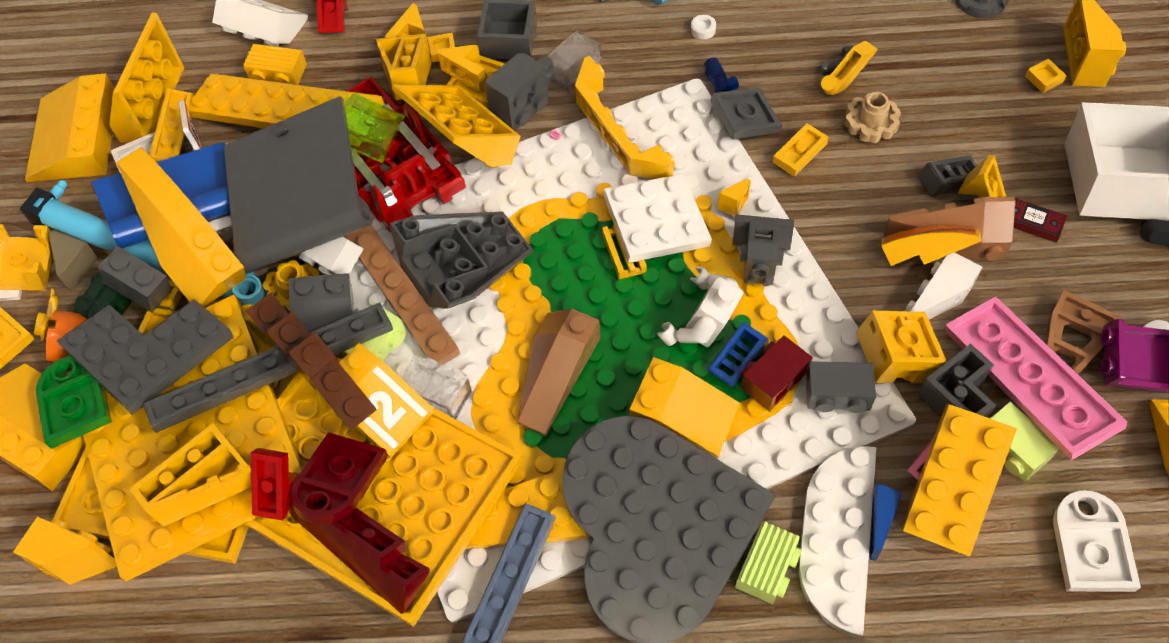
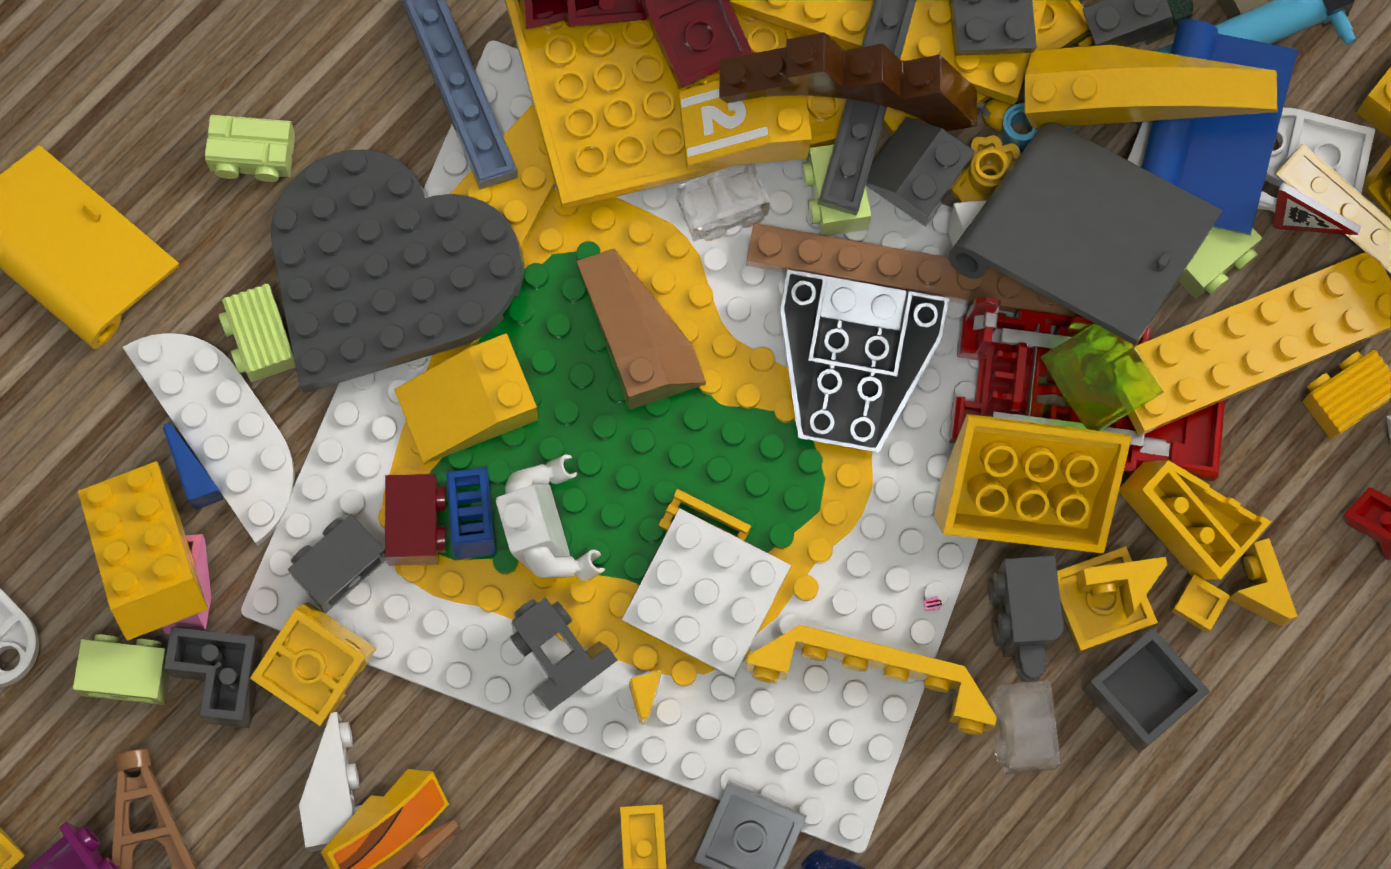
camera: 125 degrees right, 15 degrees up
(1037, 379) = (157, 749): bright pink plate -> none

